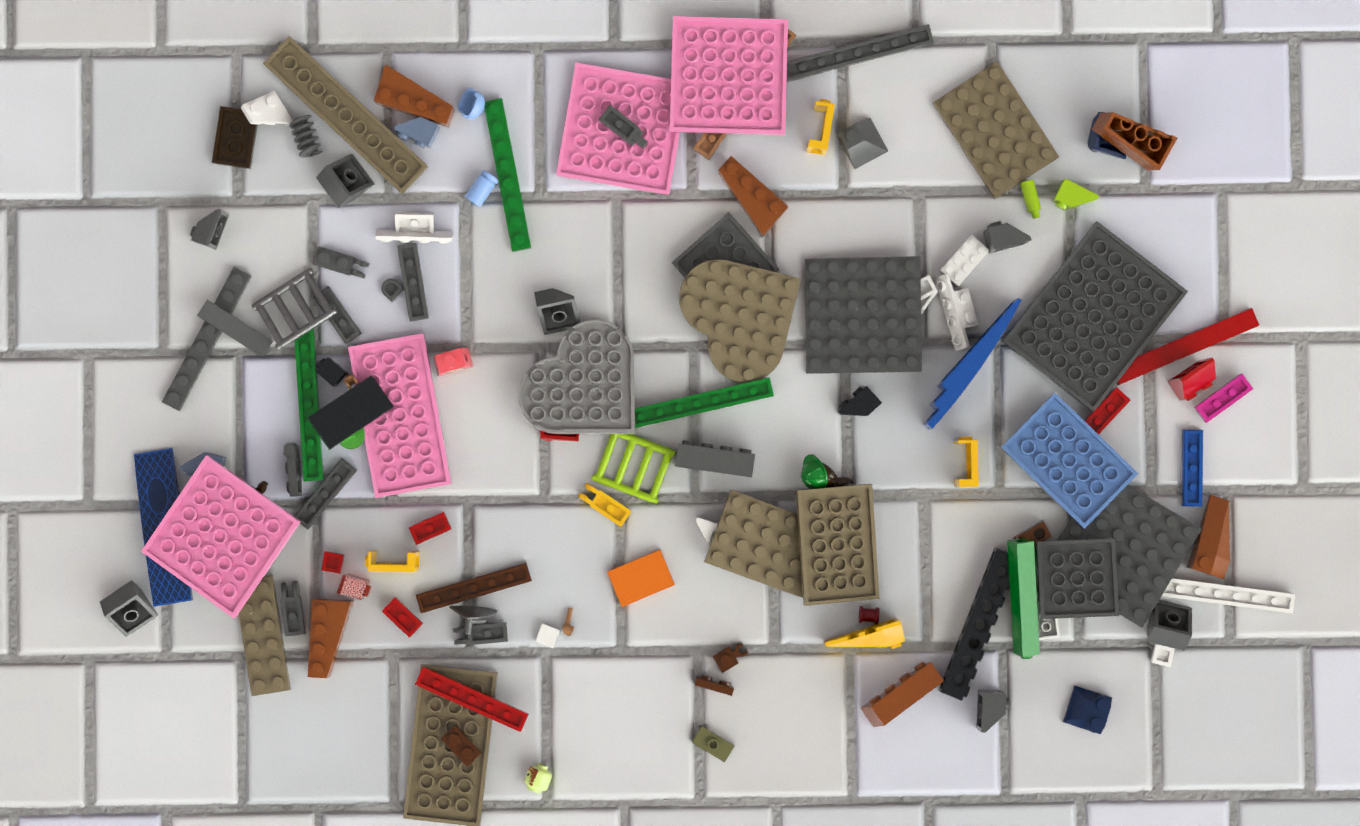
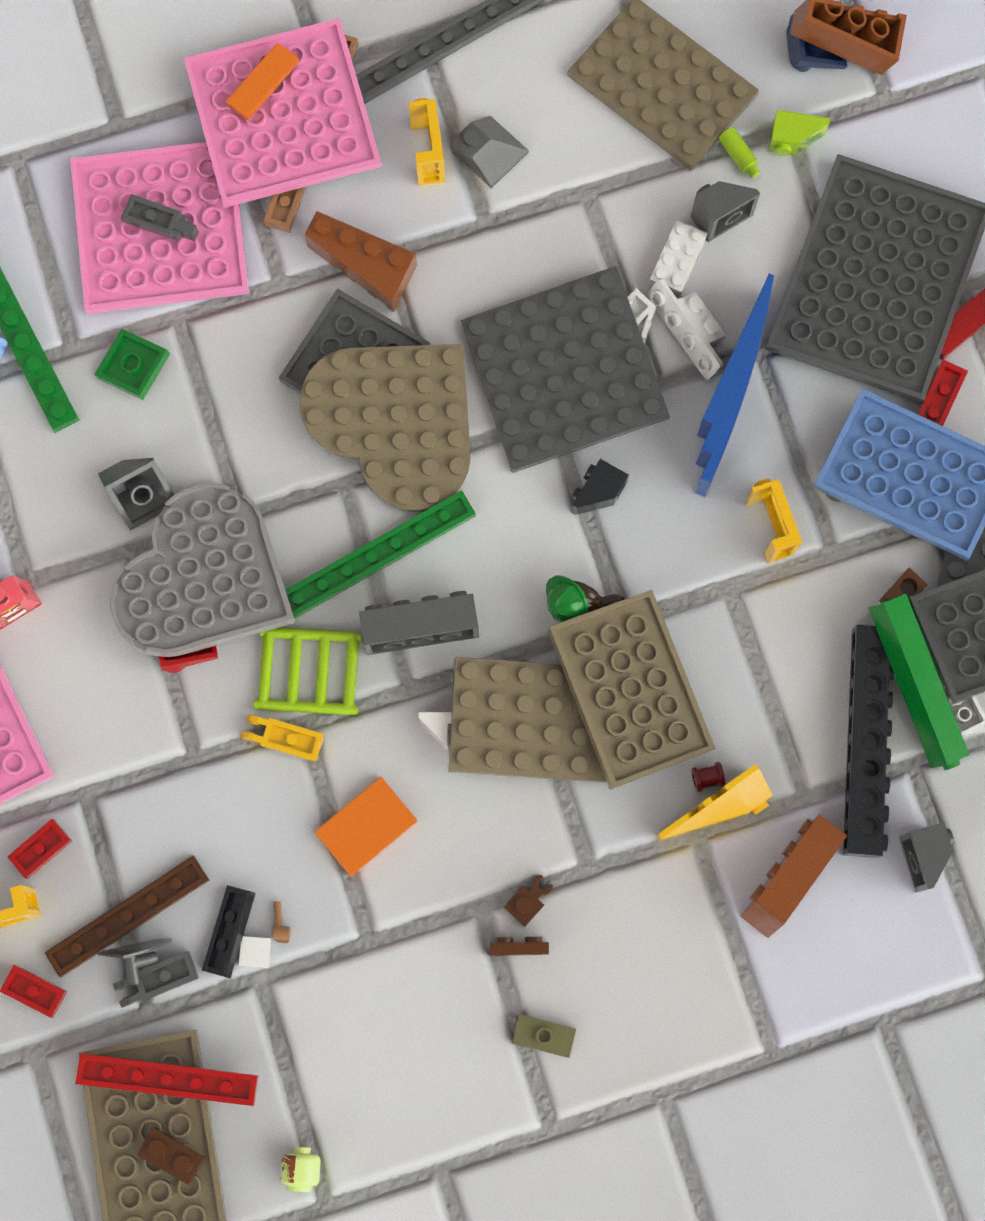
camera: 15 degrees left, 10 degrees down
(535, 617) = (228, 931): none -> black tile
(577, 221) = (132, 364): none -> green plate
(721, 51) = (262, 81): none -> orange tile

